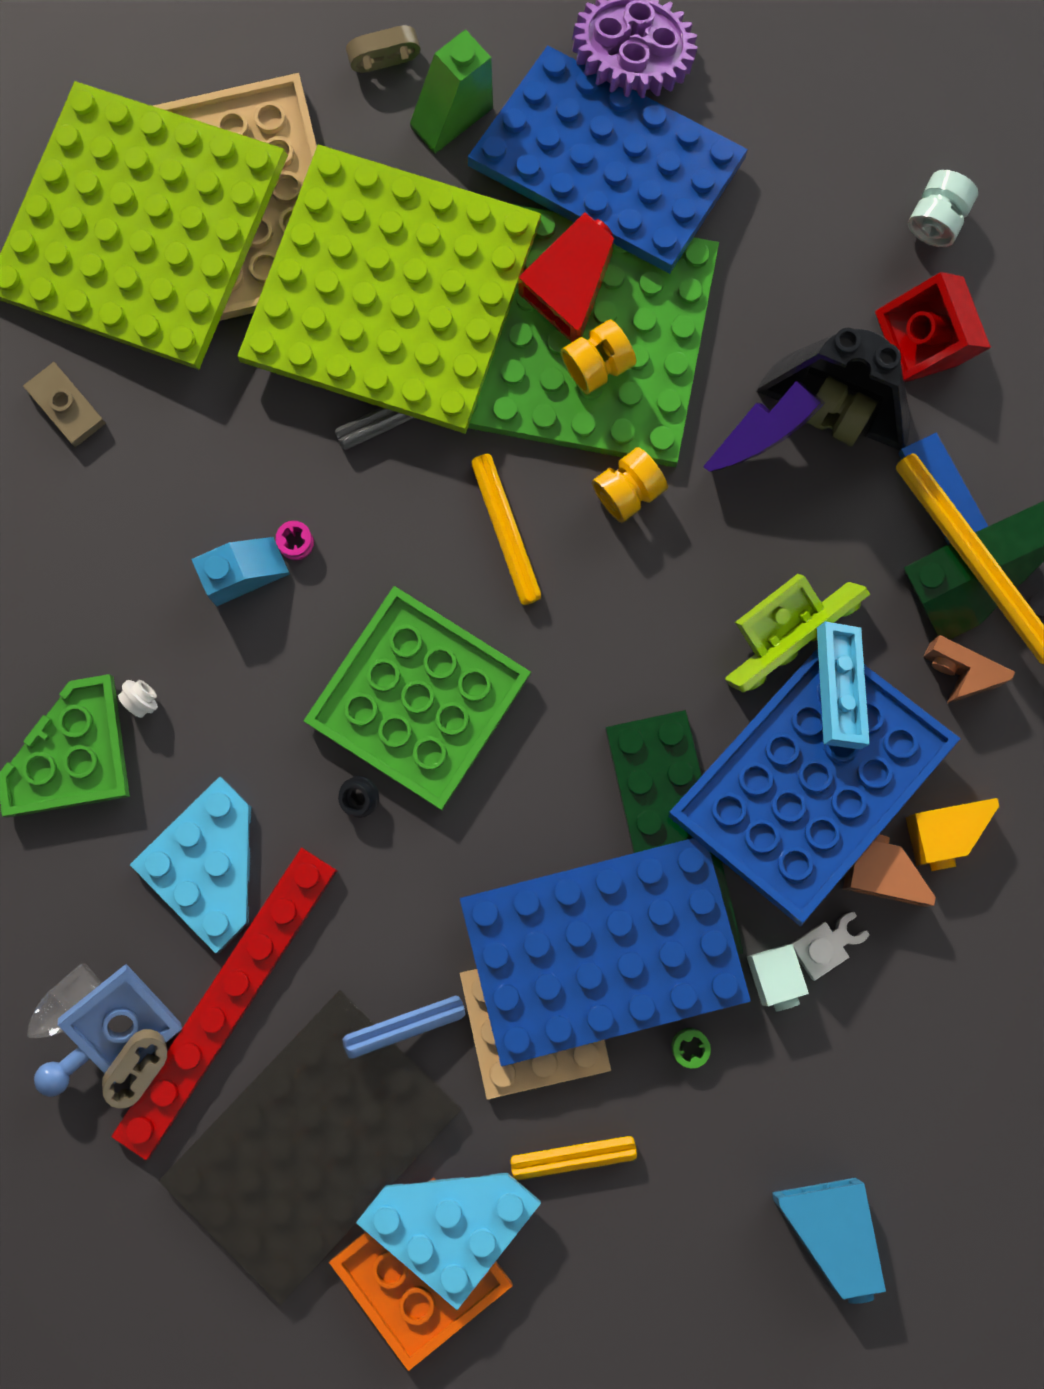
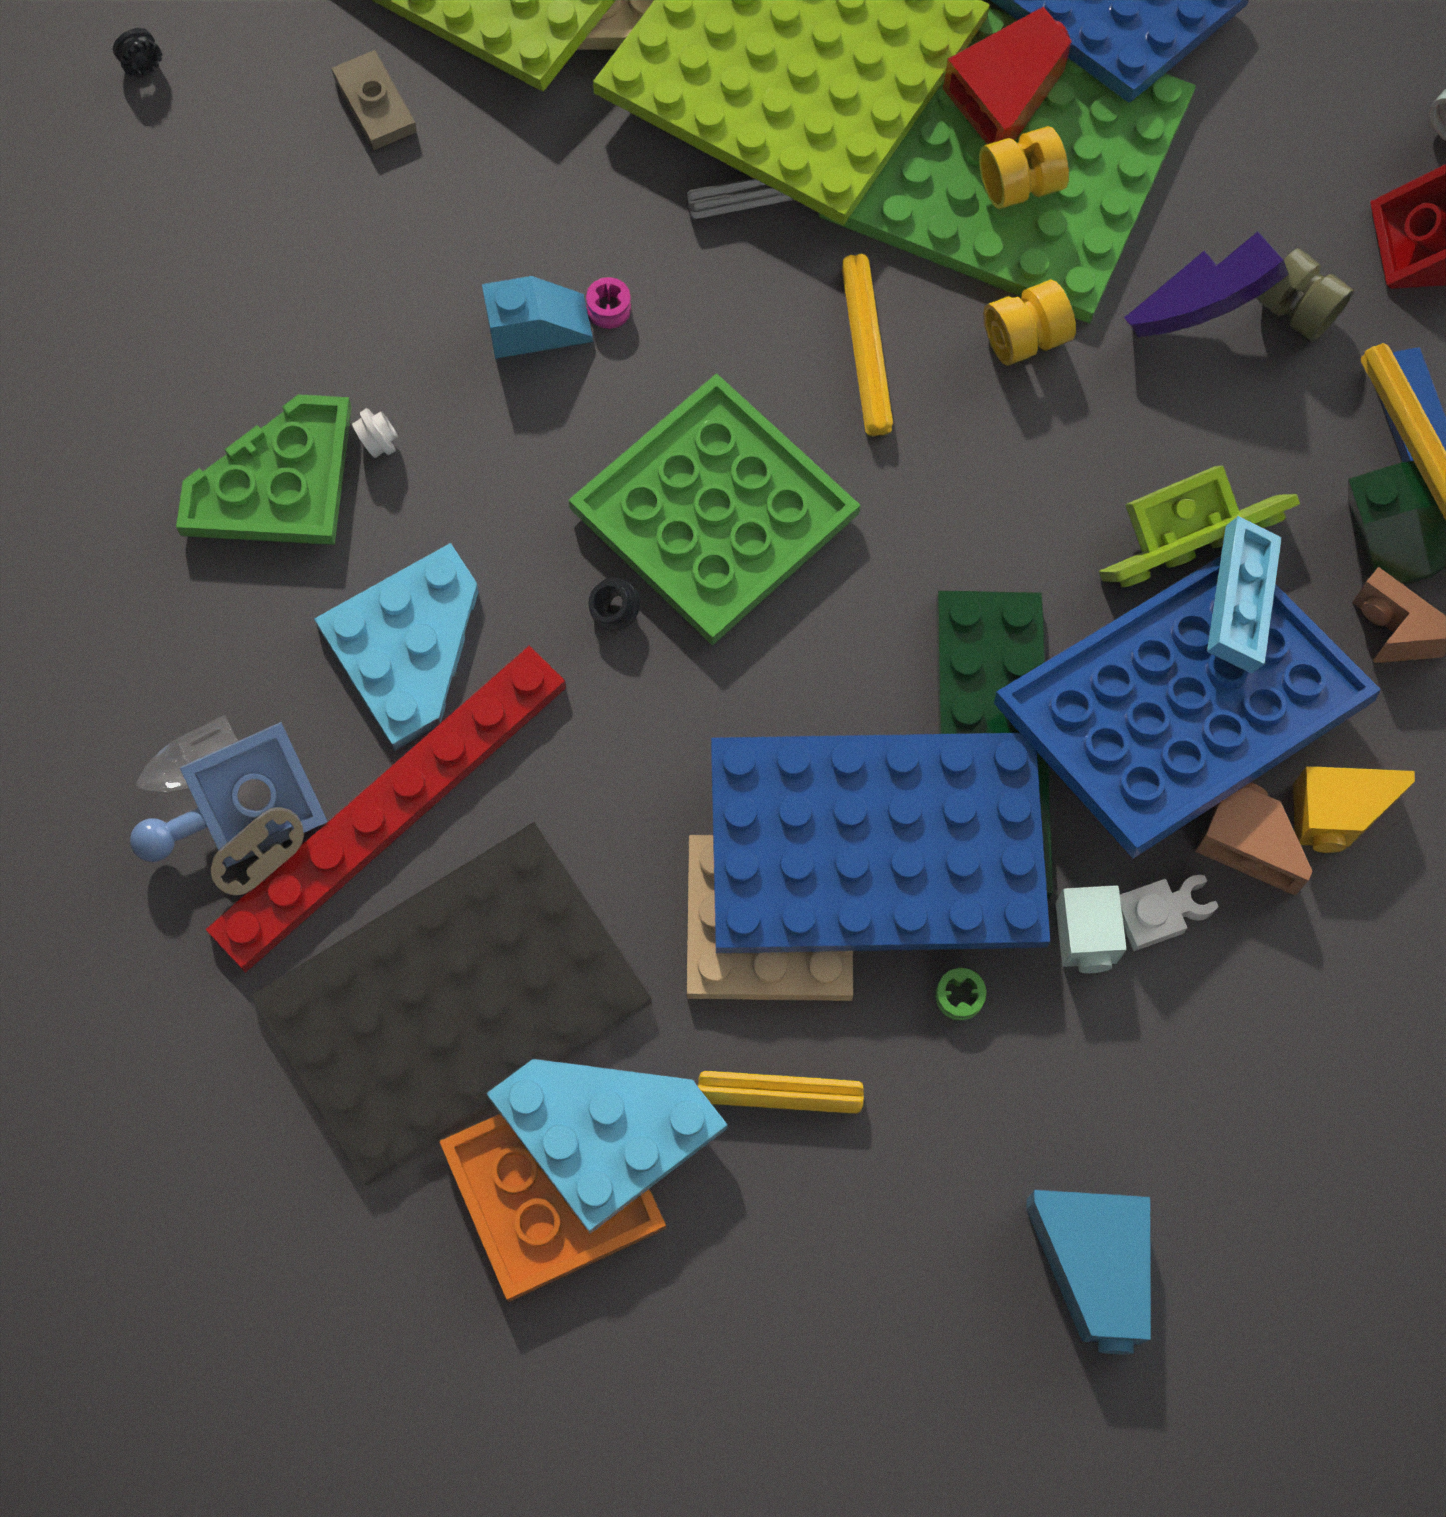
camera: 10 degrees right, 10 degrees down
(403, 1027) = (604, 878): medium blue axle -> none
(863, 363) = (1344, 228): black cone -> none

